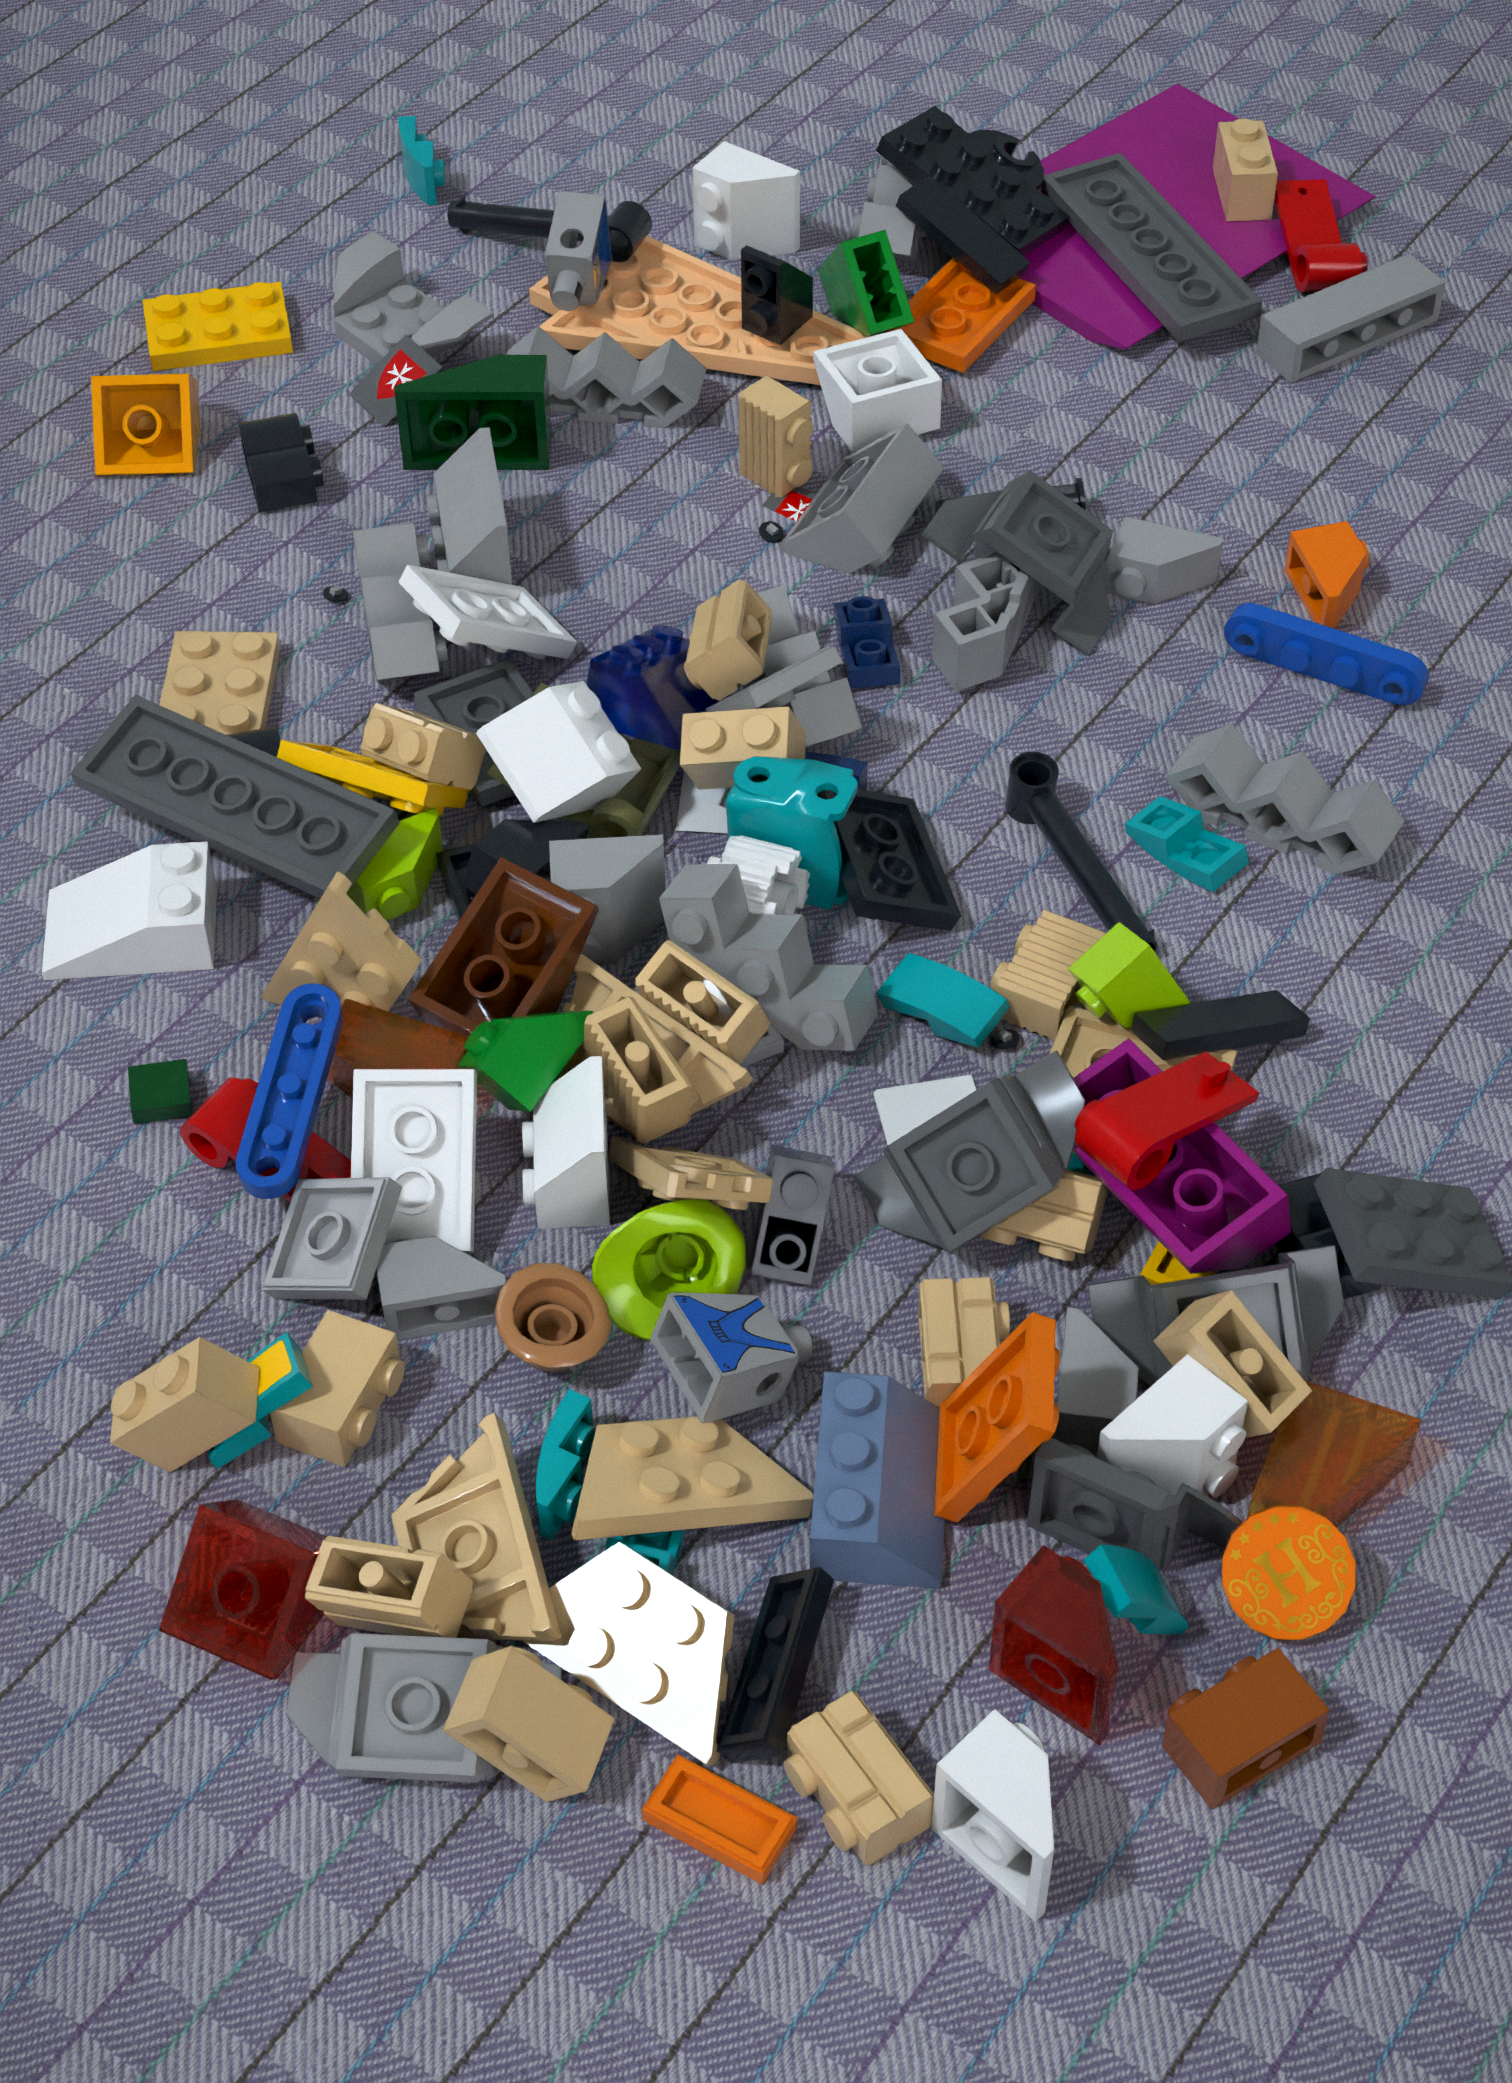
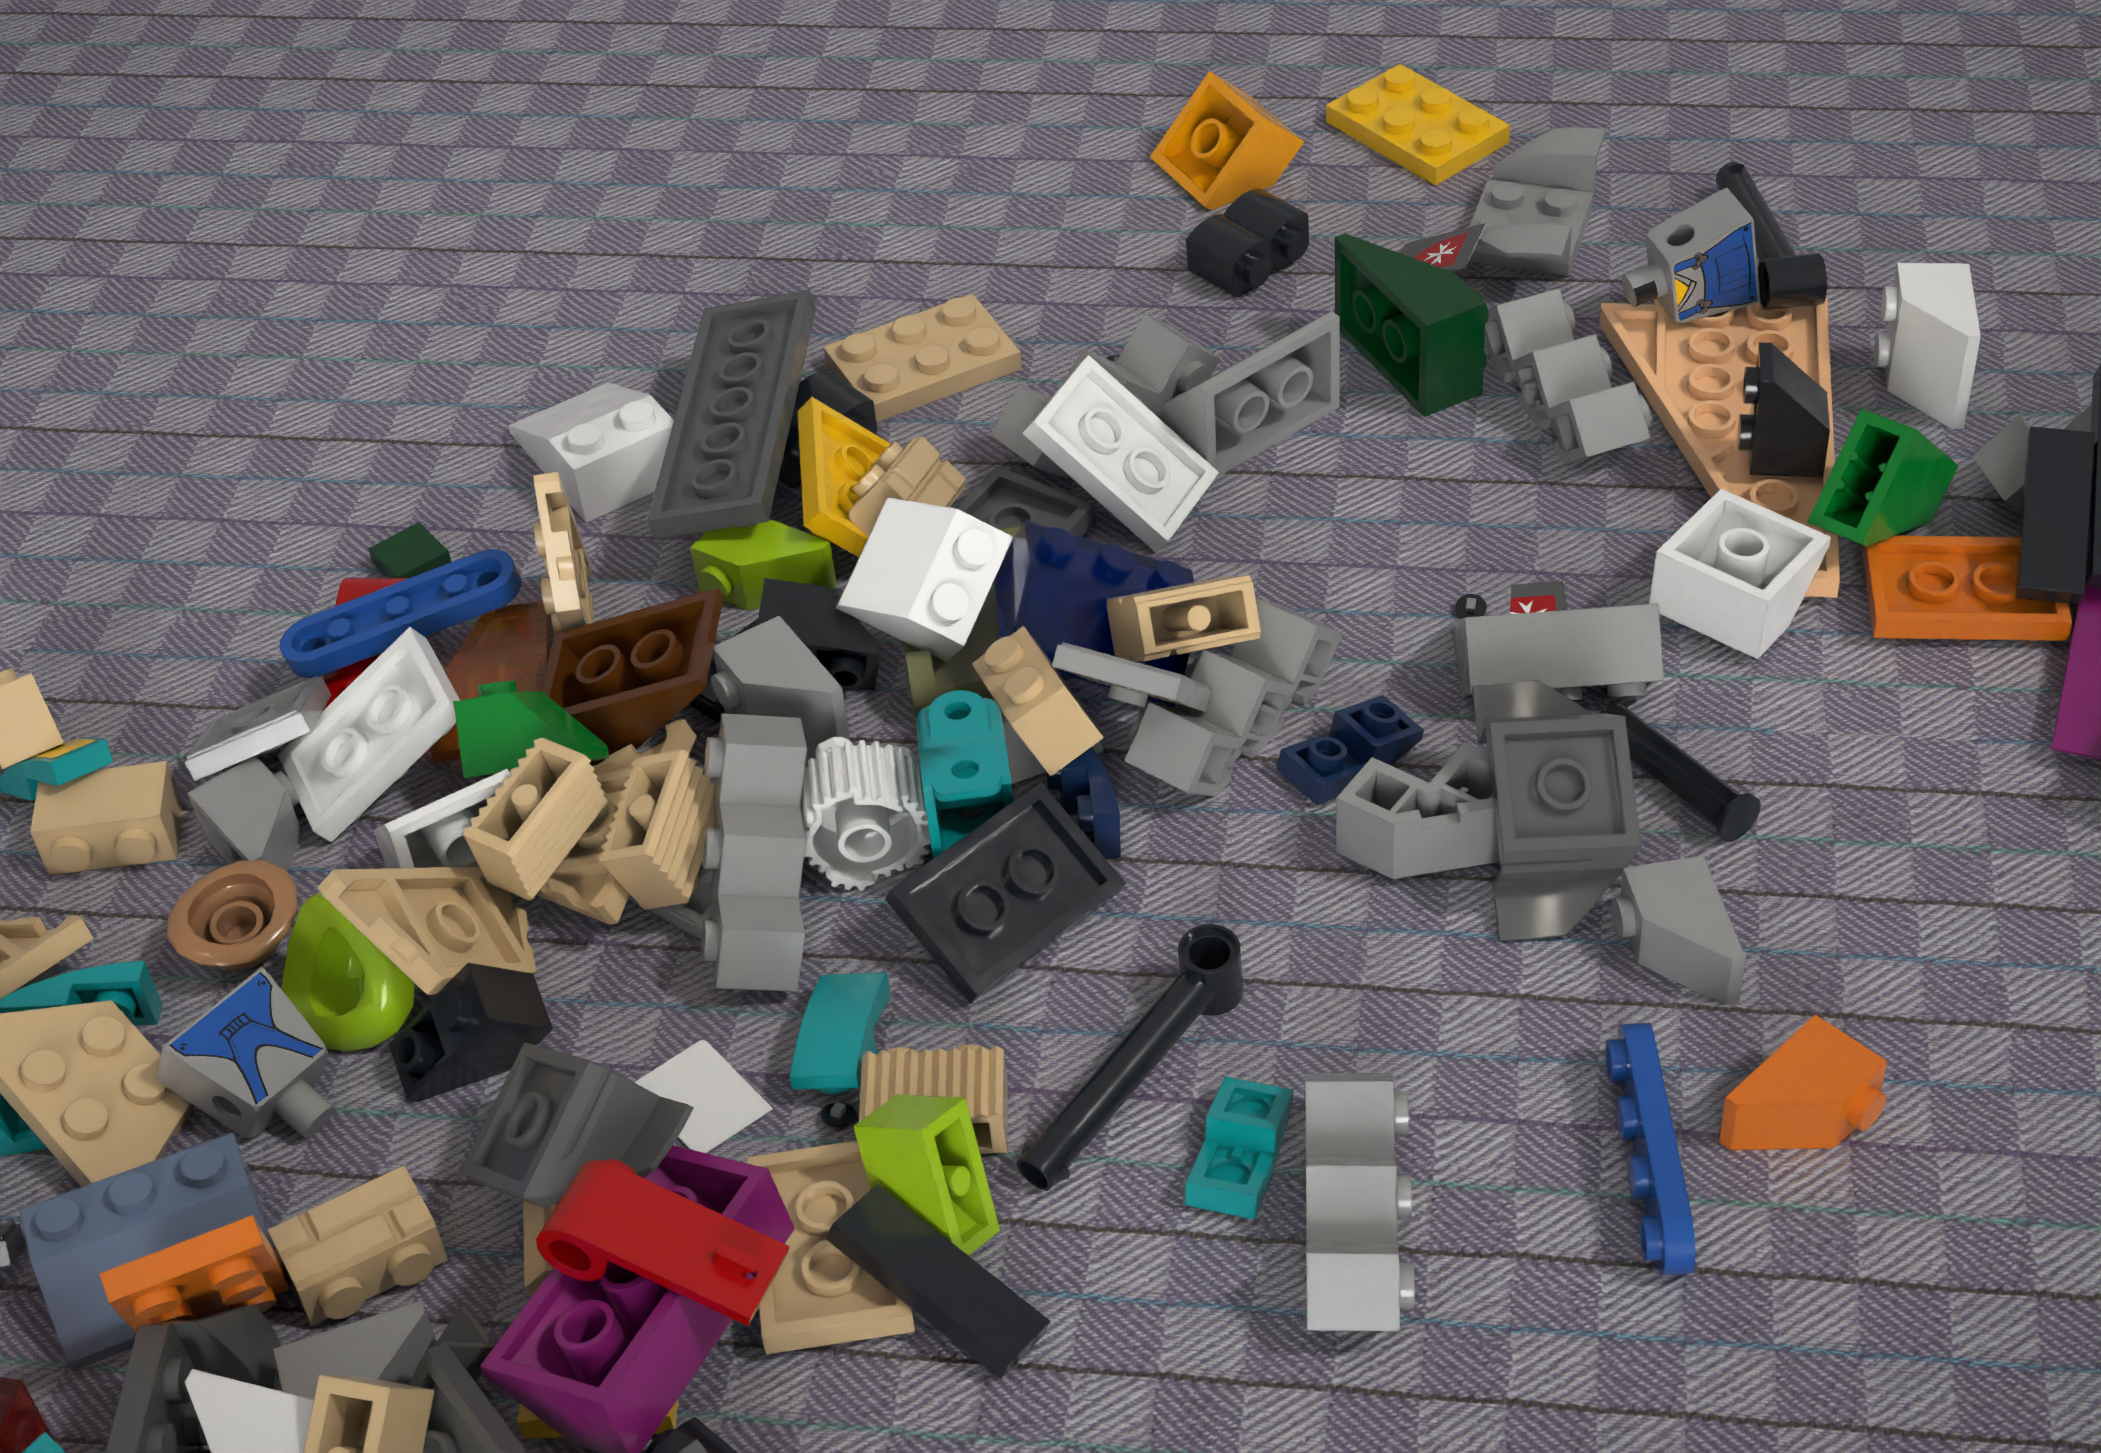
camera: 65 degrees right, 5 degrees down
(419, 161) = (1780, 112): teal slope -> none
(774, 436) = (1571, 526): tan brick -> none

